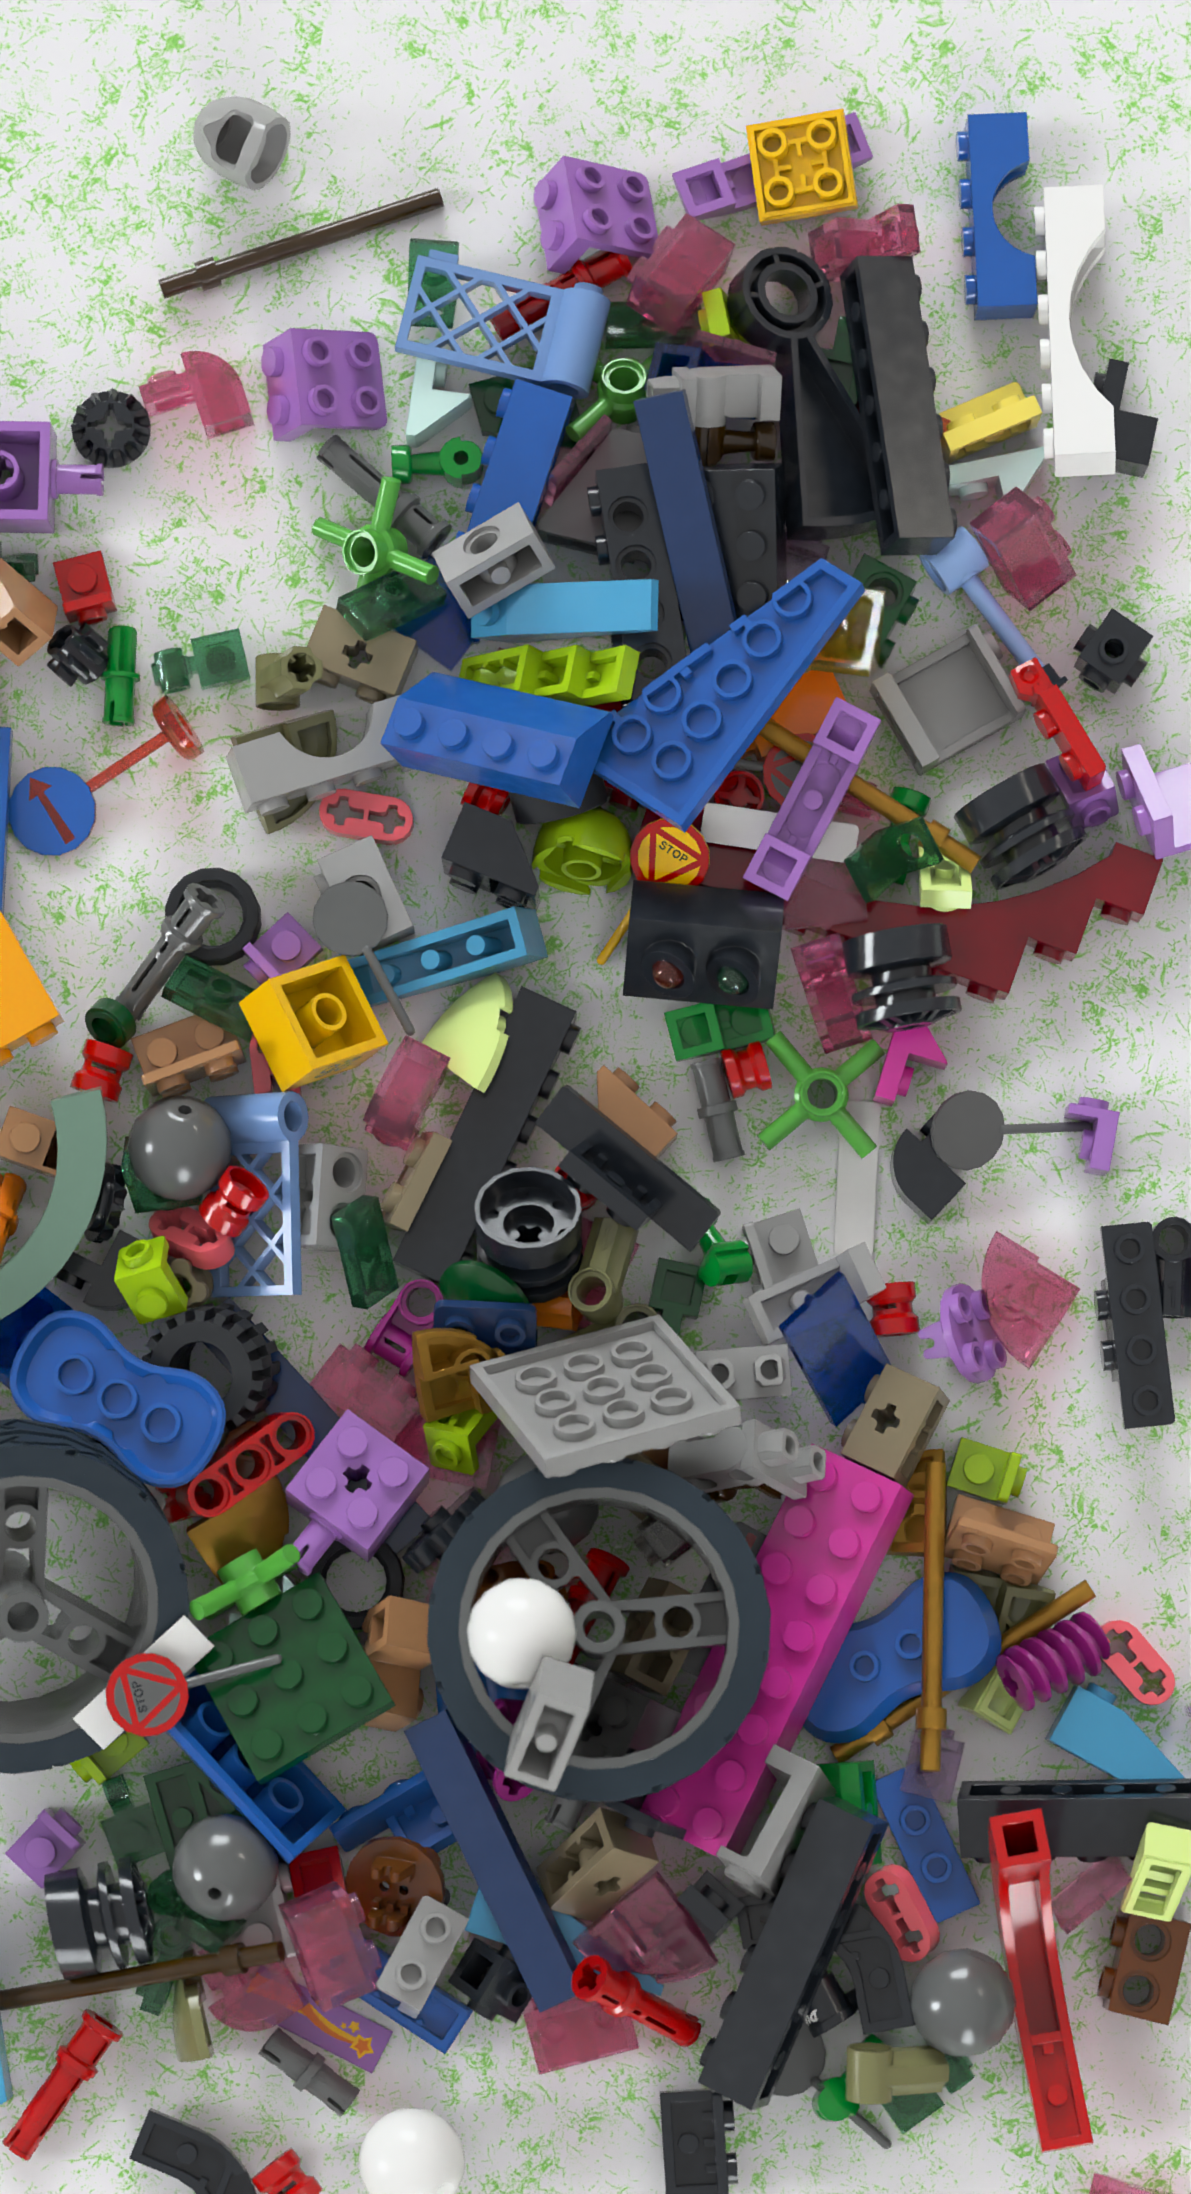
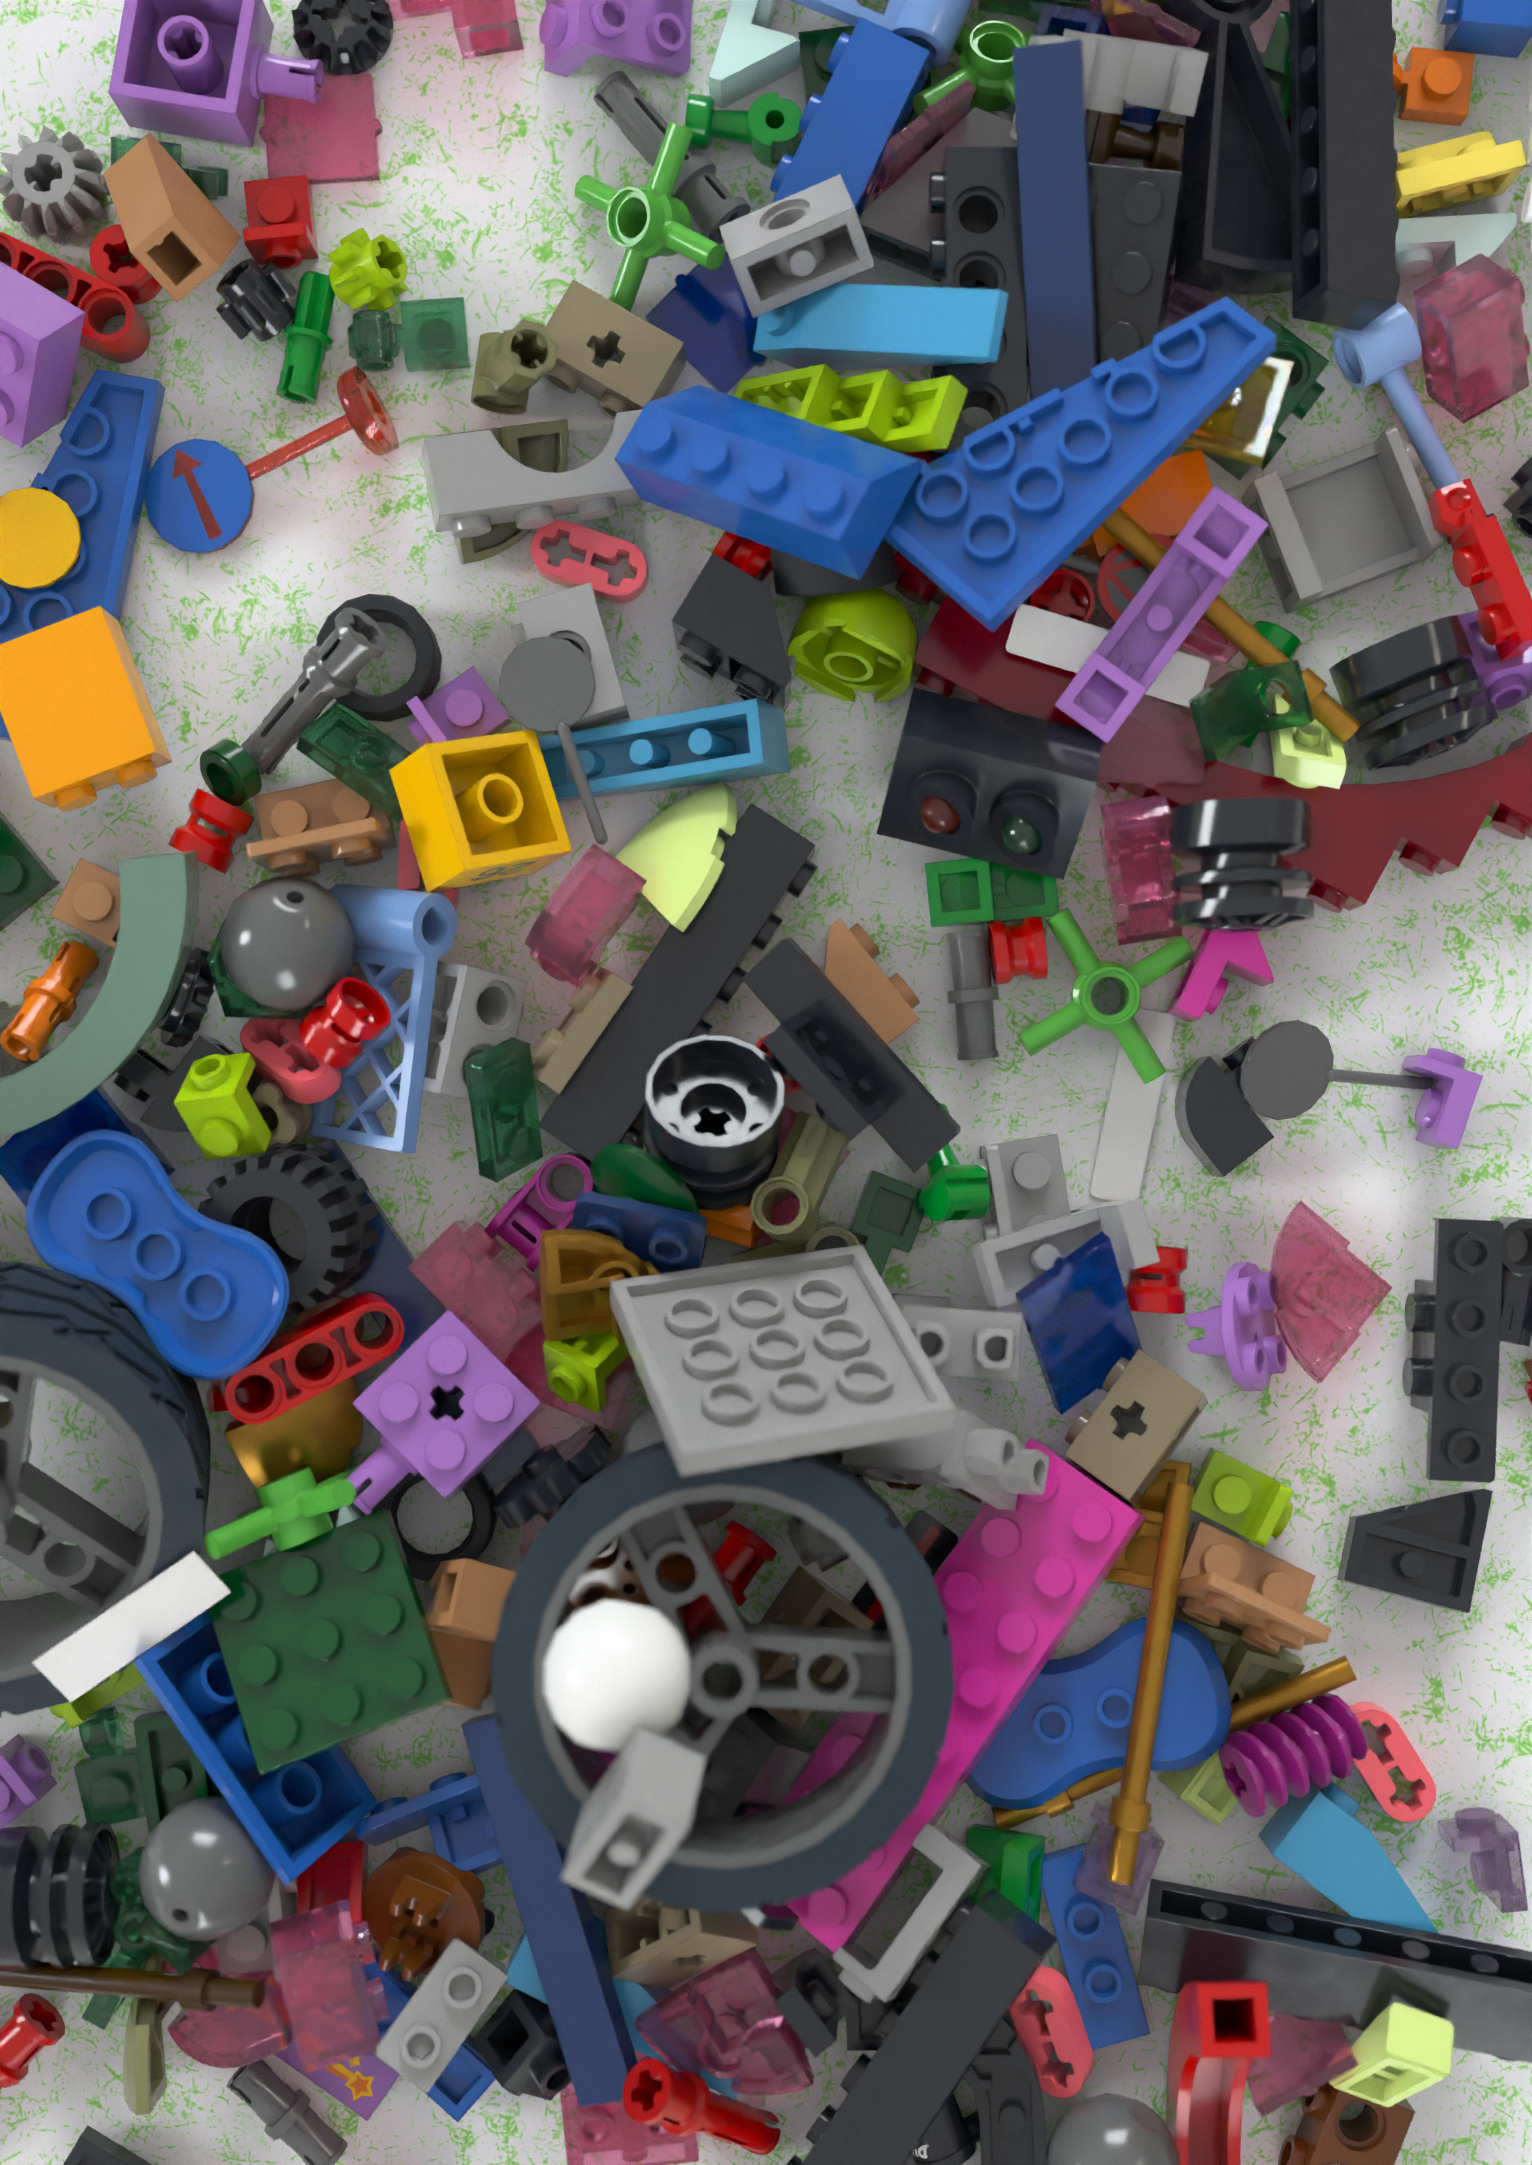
camera: 10 degrees right, 5 degrees up
(109, 521) = (325, 139): none -> clear pink piece
(151, 1693) = (138, 1644): piece -> none
(161, 619) = (368, 271): none -> lime gear
(388, 603) = (656, 290): clear green plate -> none
(664, 856) = (958, 661): piece -> none
(969, 351) = (1434, 85): none -> orange plate
(1133, 1491) = (1420, 1549): none -> black wing

